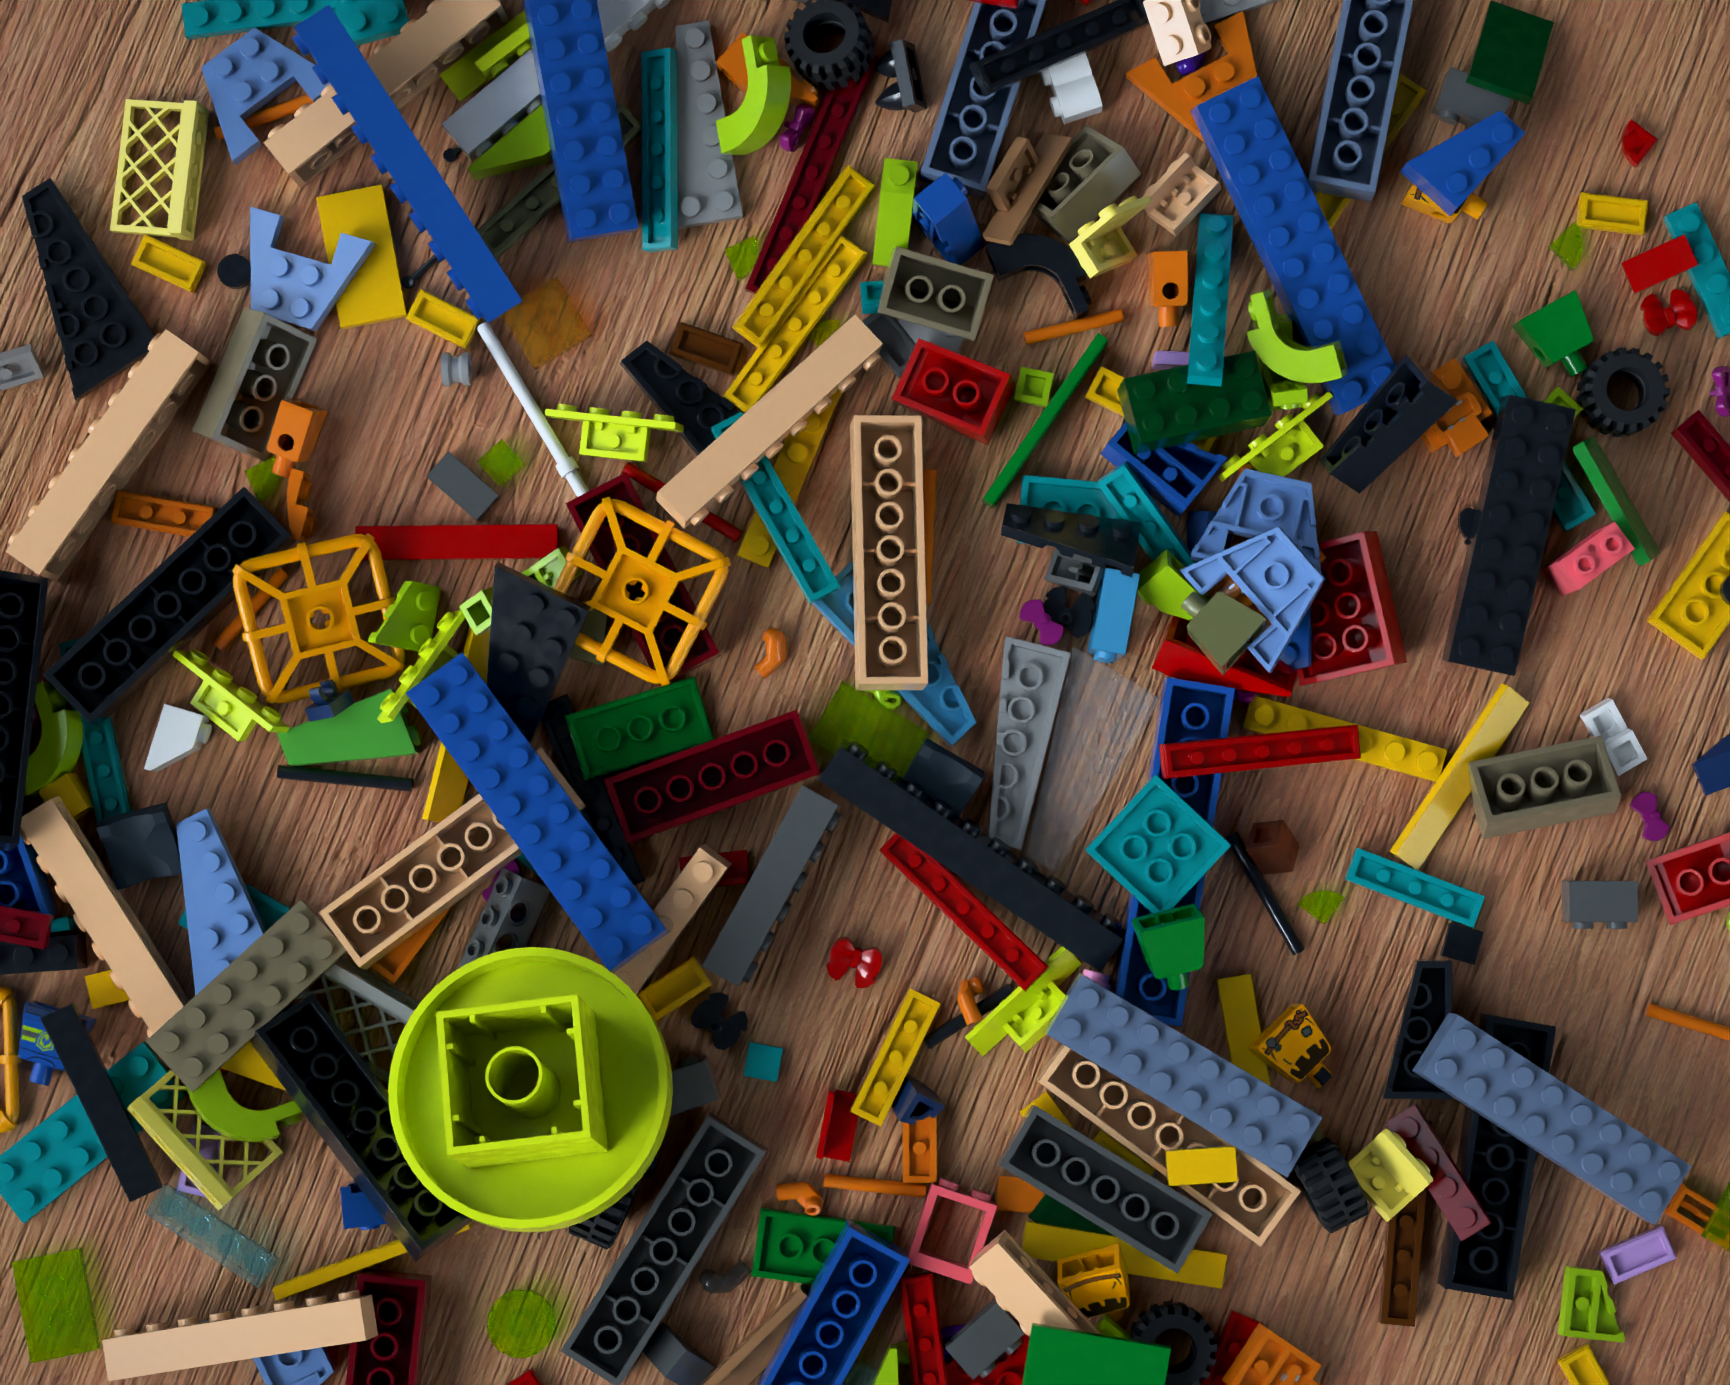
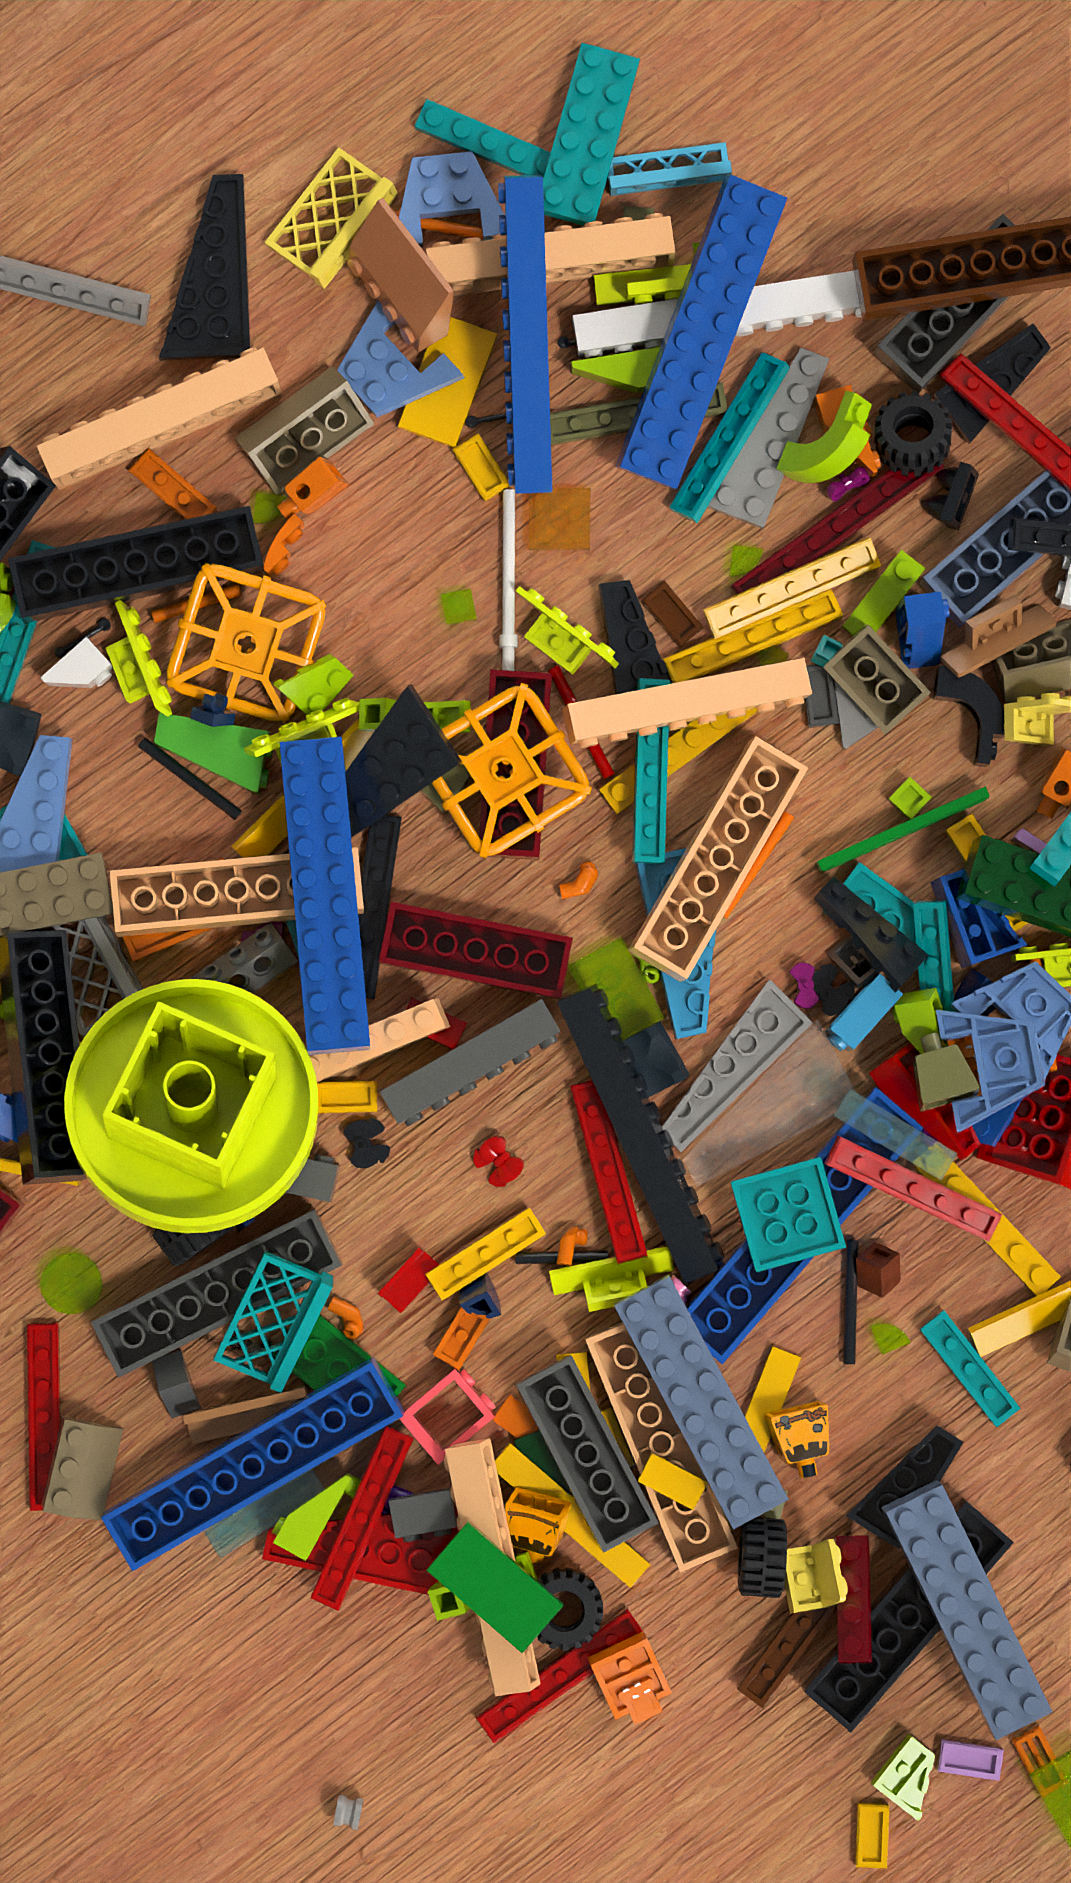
camera: 25 degrees right, 0 degrees up
(169, 263) = (294, 295): yellow tile -> none
(176, 683) = (104, 625): none -> black hinge
(234, 271) = (342, 332): black tile -> none
(257, 184) = (401, 278): none -> nougat slope
(456, 369) = (468, 513): light grey wheel -> none
(463, 486) = (418, 607): dark grey tile -> none
(463, 541) = (393, 650): red tile -> none
(639, 728) = (441, 878): green tile -> none
(760, 1231) = (298, 1332): none -> teal fence
(763, 1061) = (381, 1195): teal tile -> none
(874, 1185) = (409, 1344): orange bar -> none
(954, 390) = (845, 764): red slope -> none
(1073, 326) = (969, 770): orange bar -> none
(1172, 943) = (754, 1295): green torso -> none
(1212, 711) = (895, 1134): none -> clear light blue plate
(1461, 943) = (980, 1434): black tile -> none

